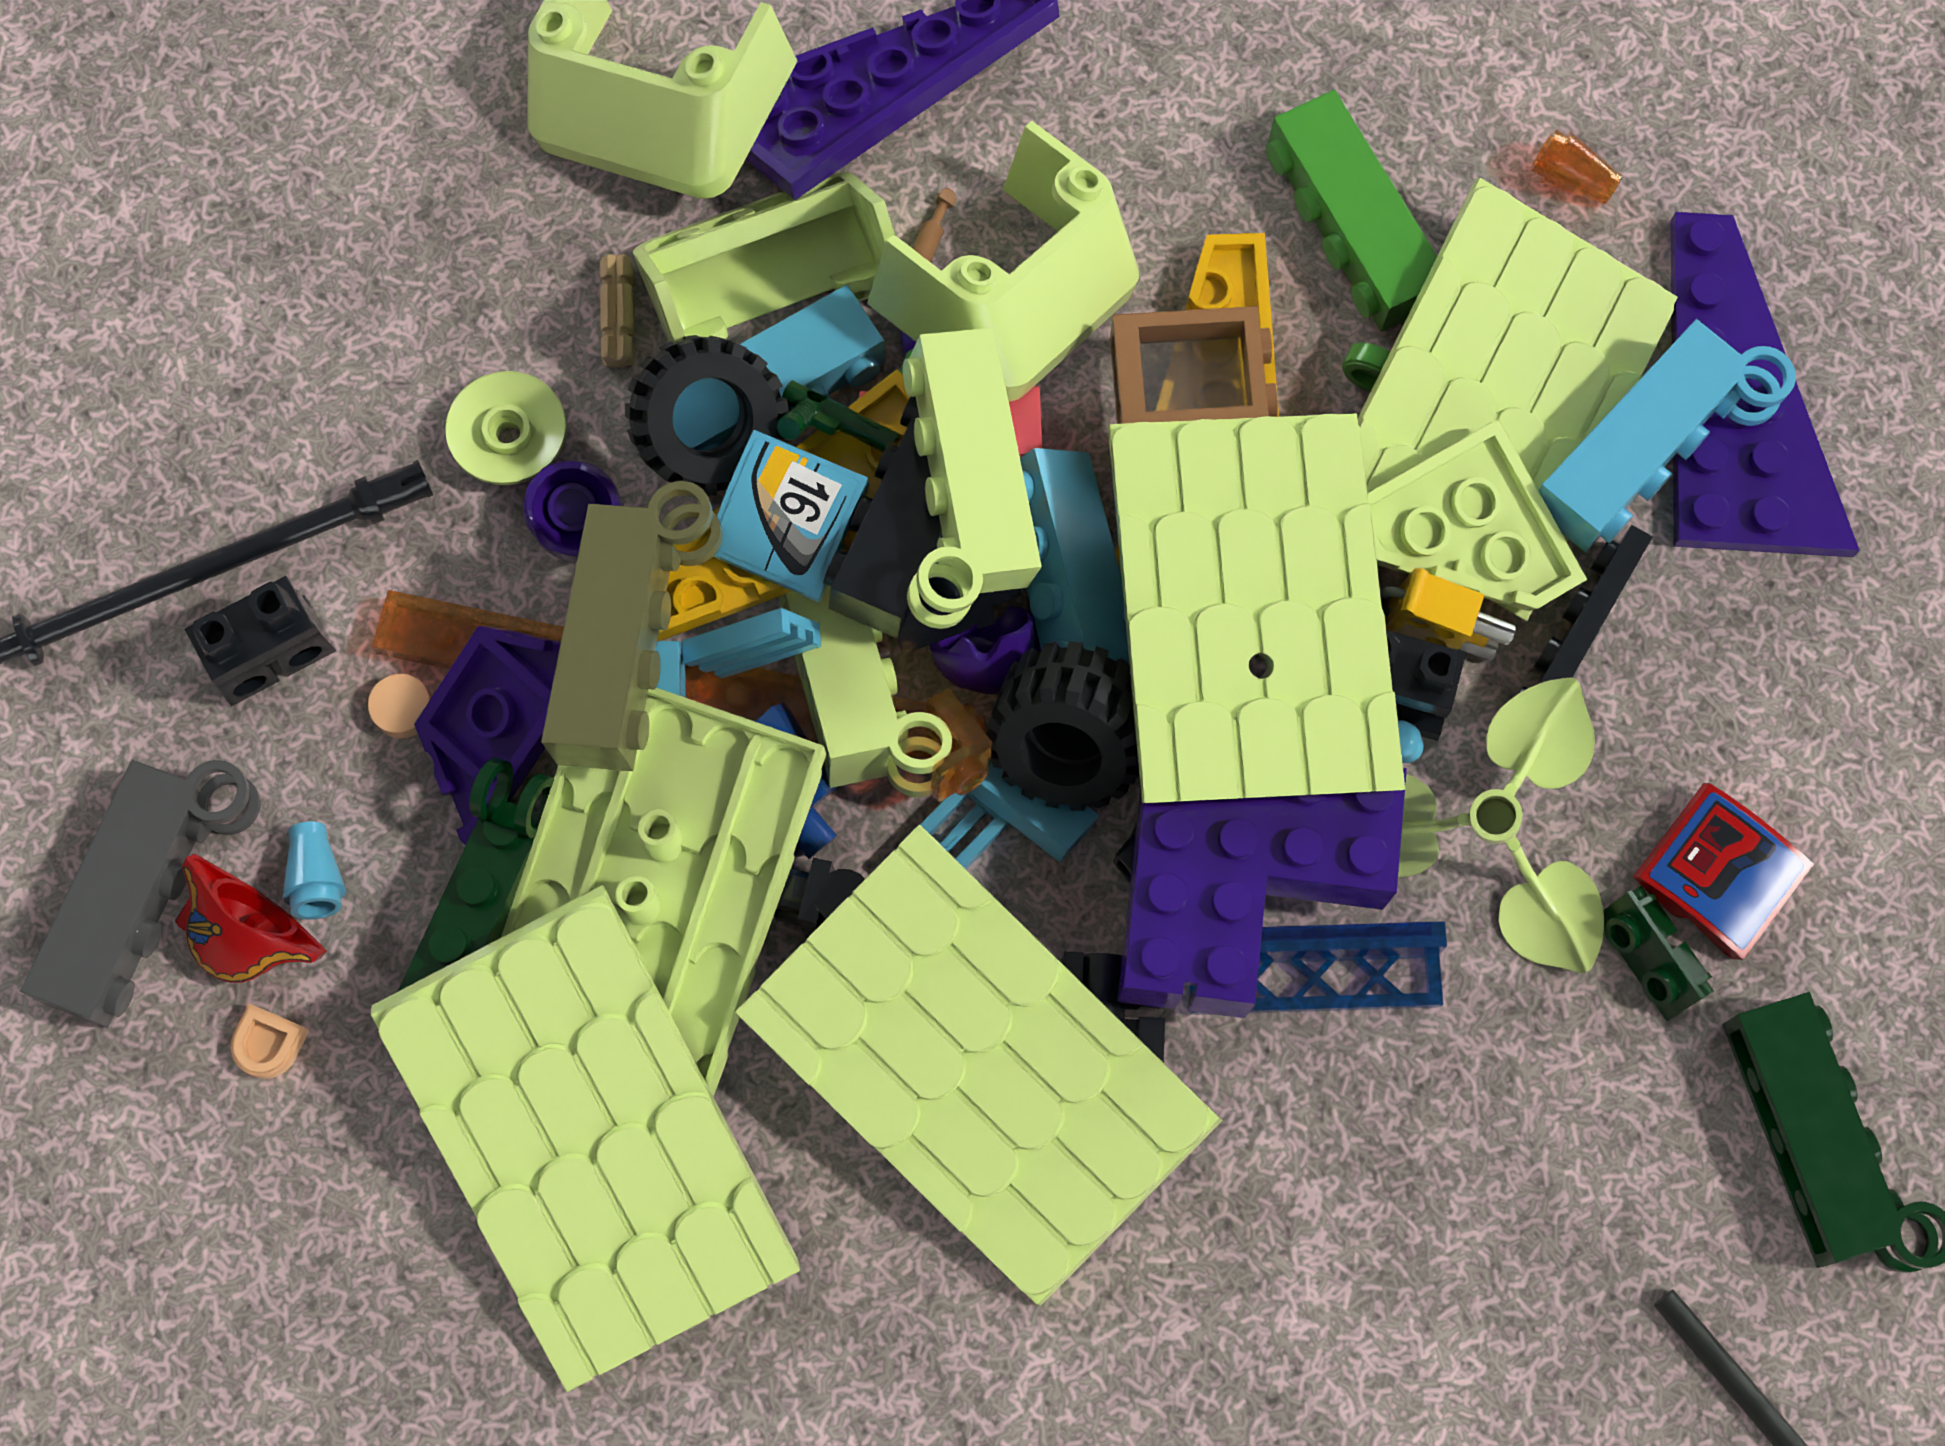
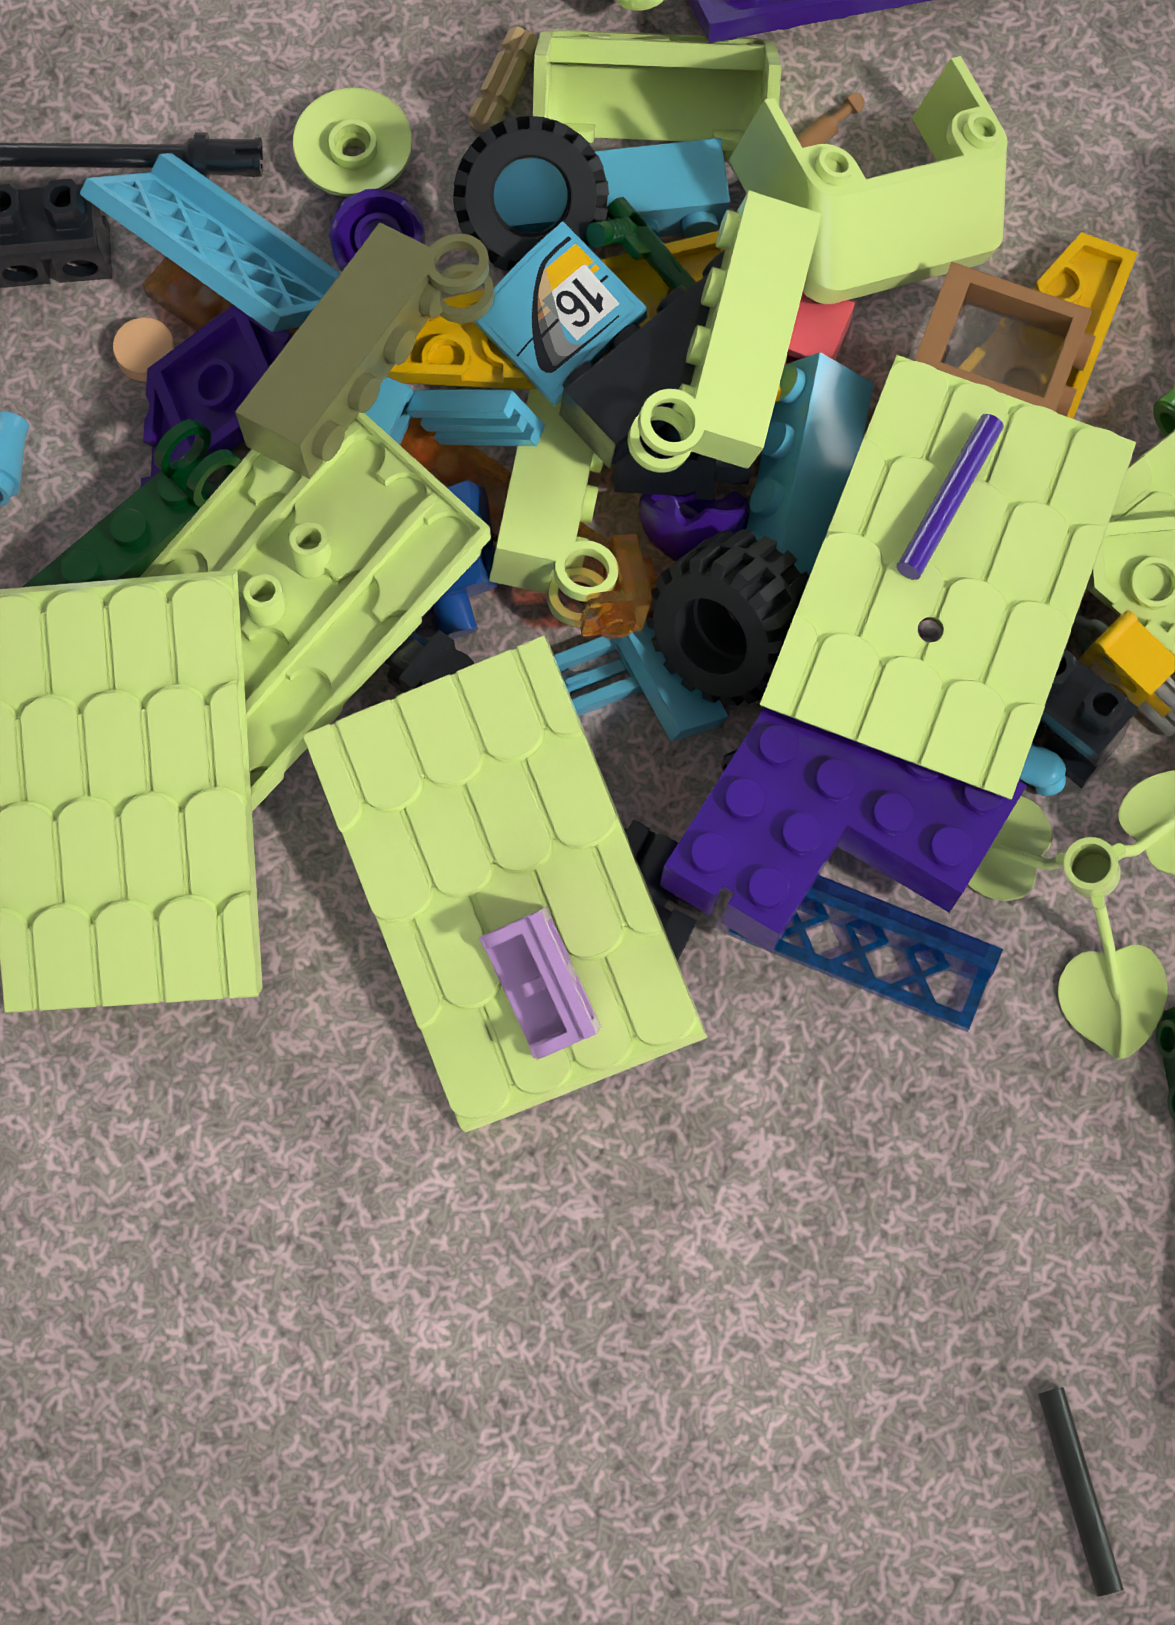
camera: 25 degrees right, 0 degrees up
(436, 579) = (216, 240): none -> medium azure fence
(1058, 1143) = (541, 983): none -> lavender hinge
(1222, 537) = (950, 497): none -> dark purple bar

